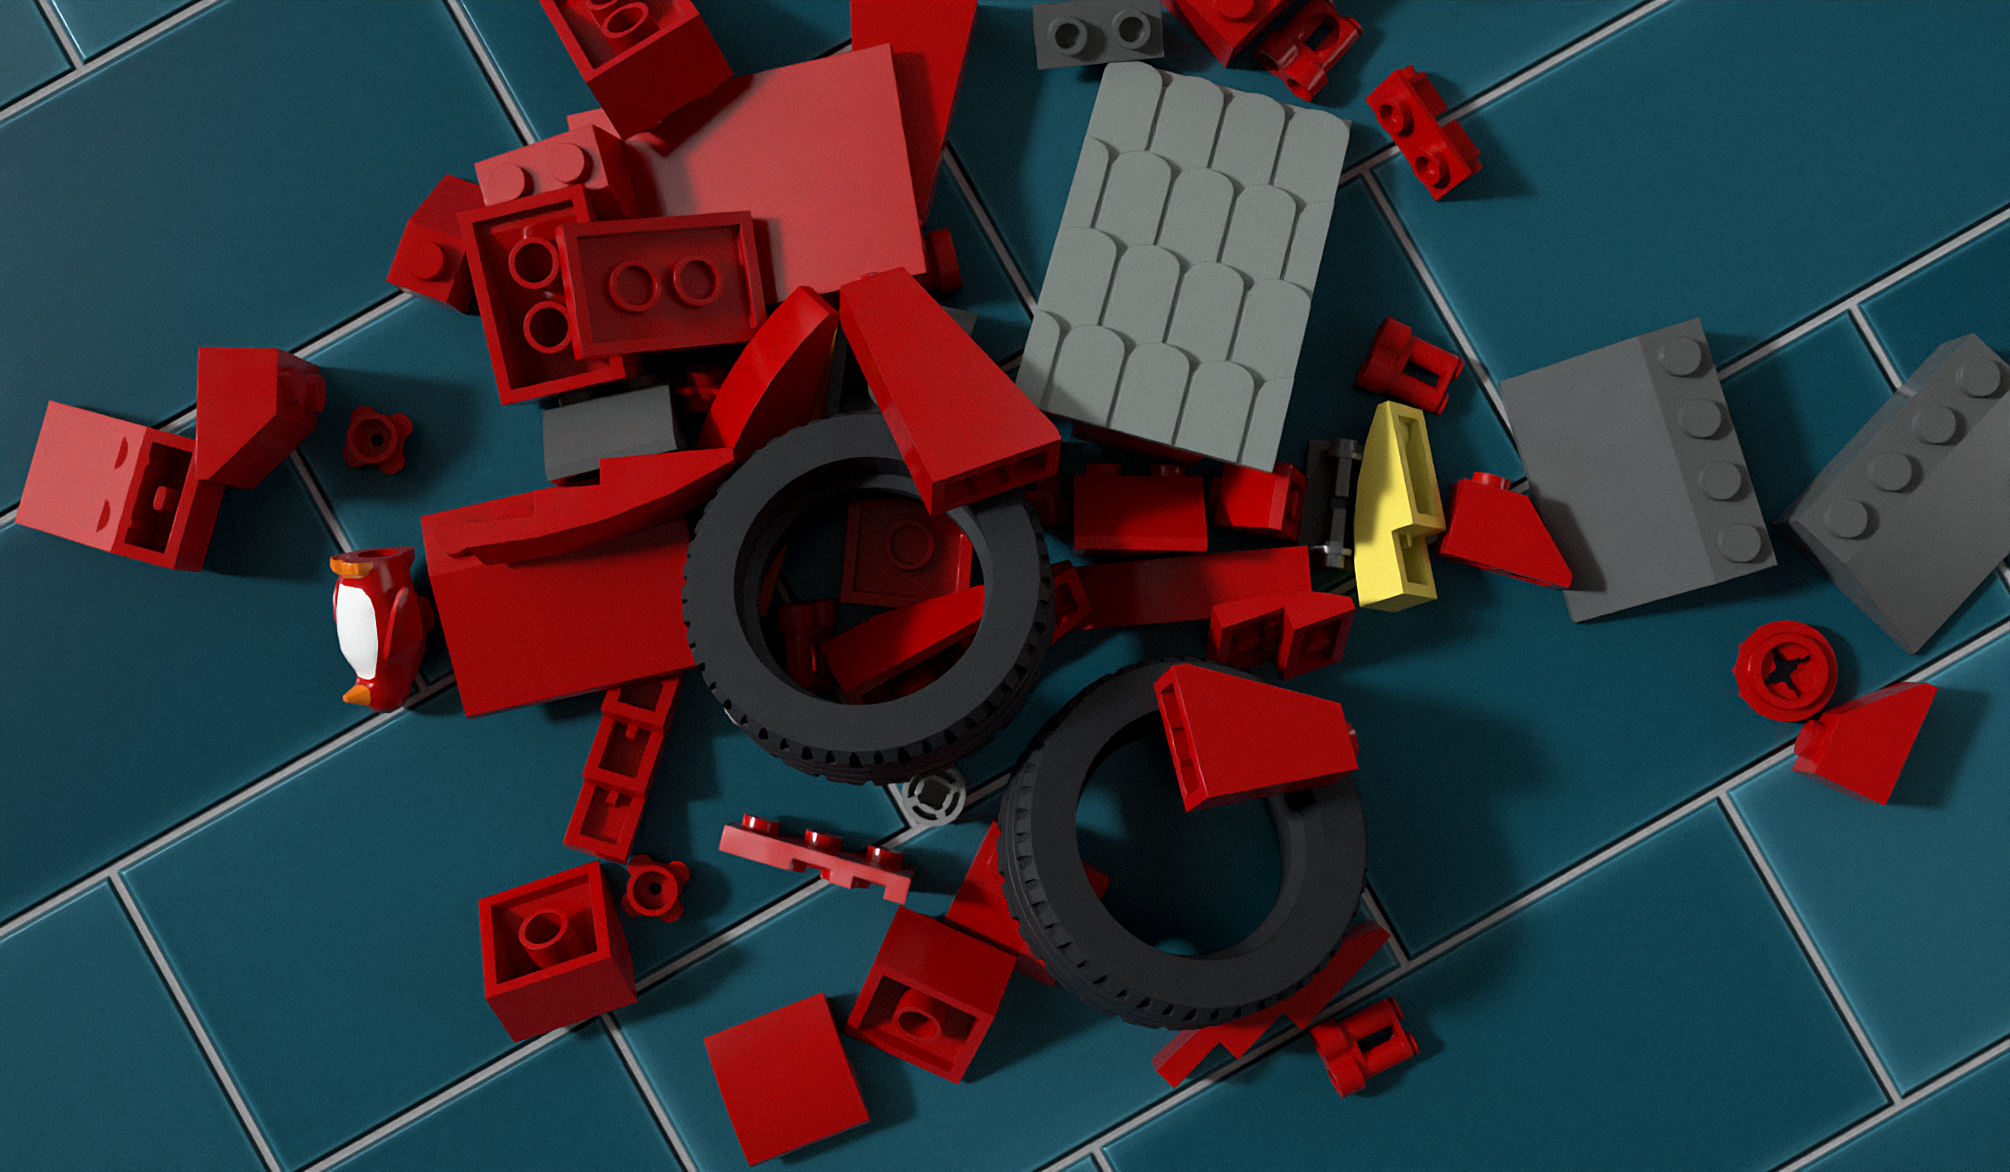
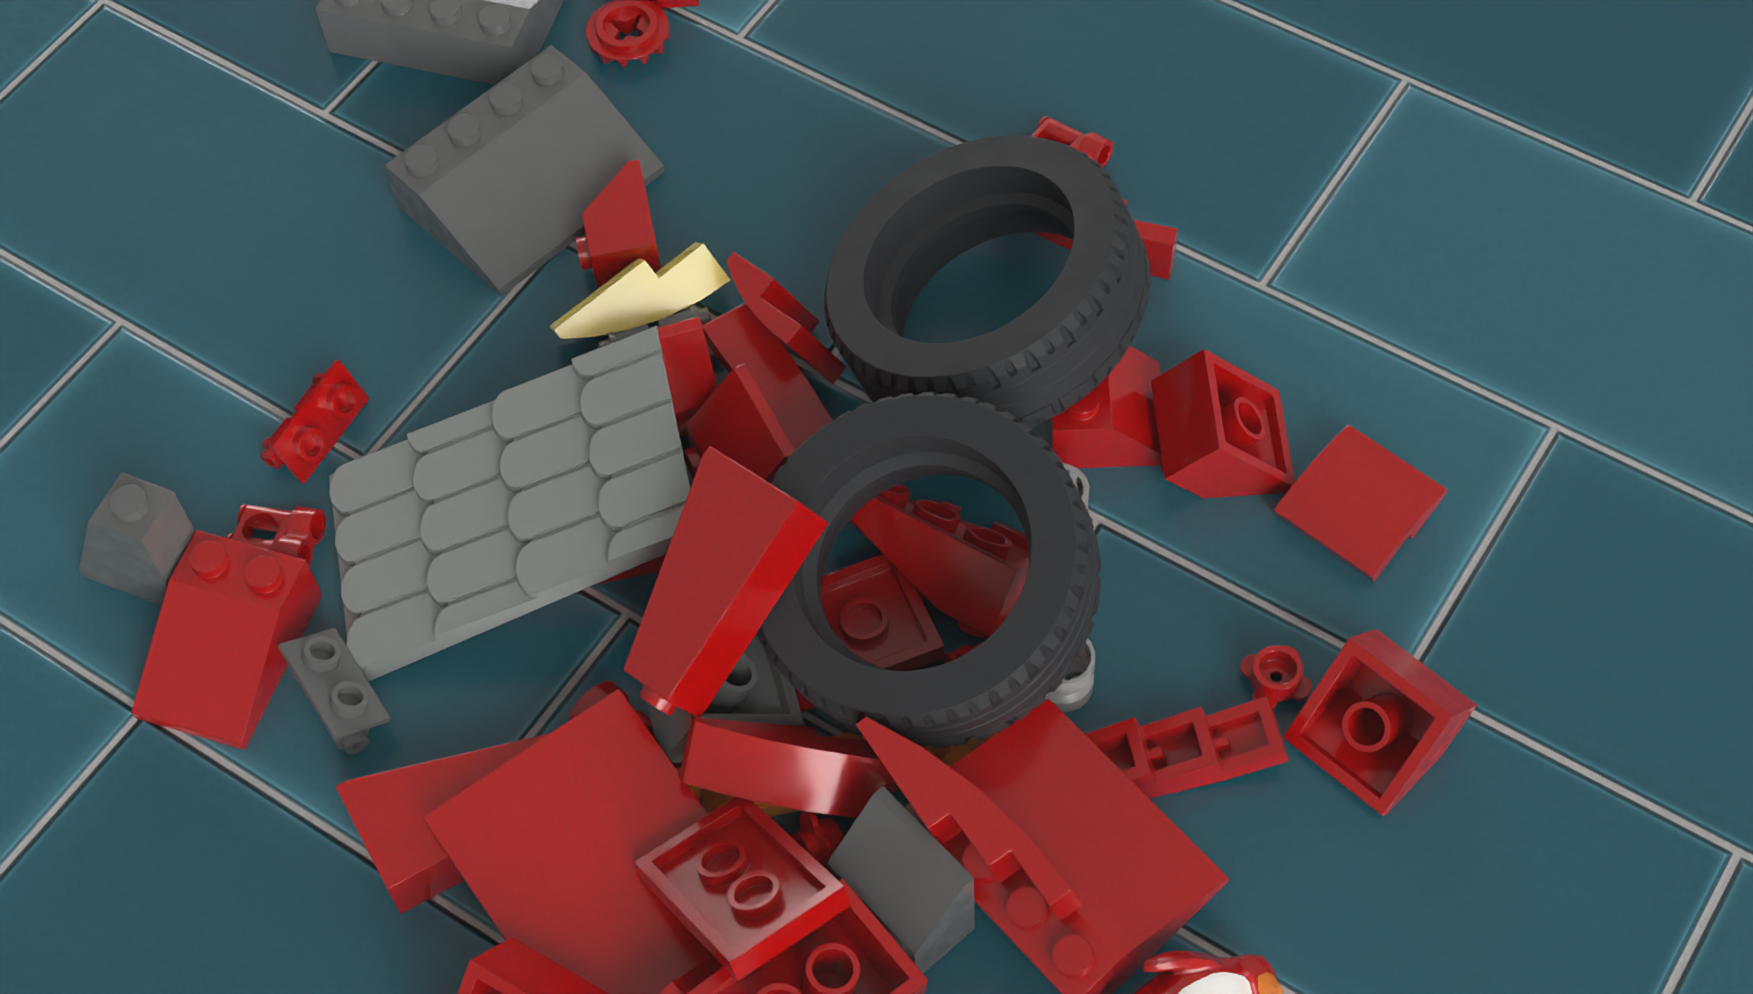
camera: 110 degrees left, 30 degrees down
(761, 841) = (1154, 517): red wing -> none
(1249, 738) = (880, 256): red slope -> none
(1388, 357) = (512, 366): red piece -> none

